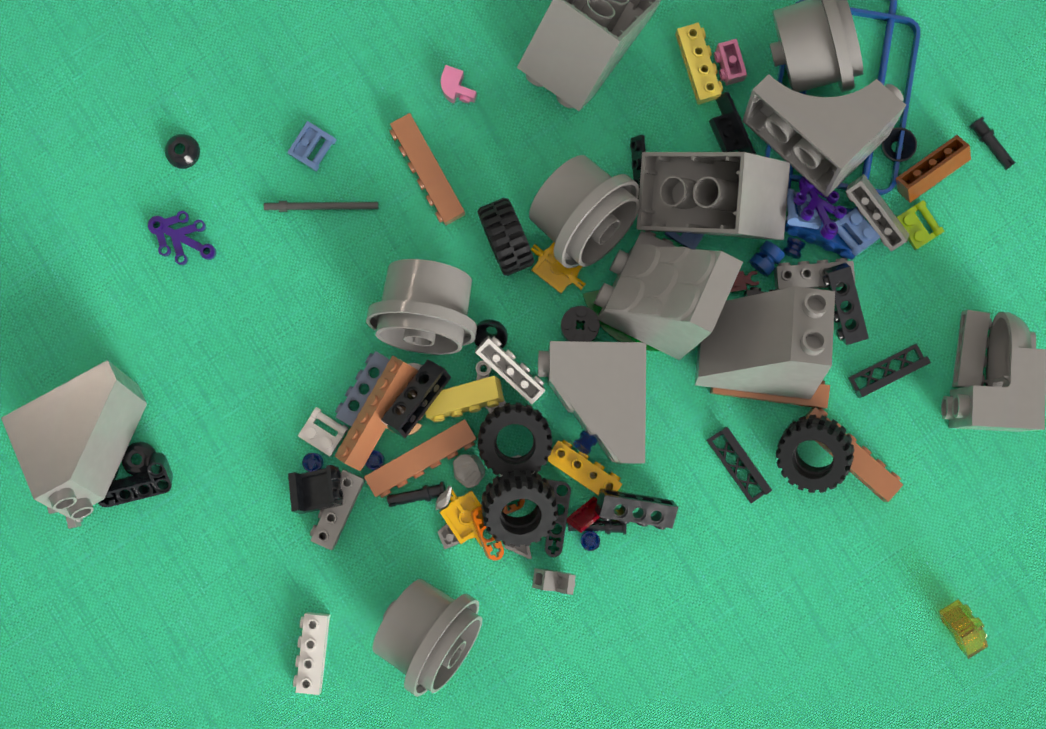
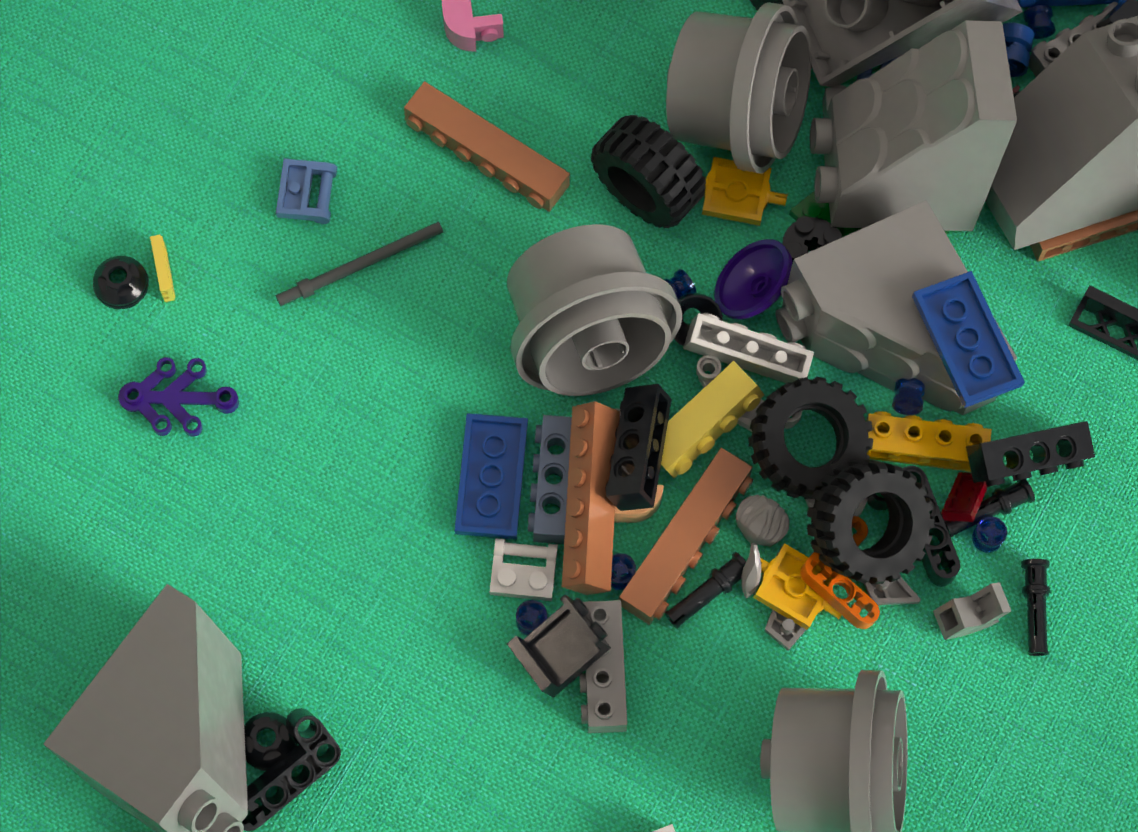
camera: 30 degrees left, 15 degrees down
(208, 155) = (163, 268): none -> light yellow tile
(331, 370) = (491, 476): none -> blue plate
(492, 310) = (681, 283): none -> clear blue wheel
(535, 328) = (753, 279): none -> dark purple dish
(597, 586) = (1036, 593): none -> black pin
(621, 440) = (968, 339): none -> blue plate

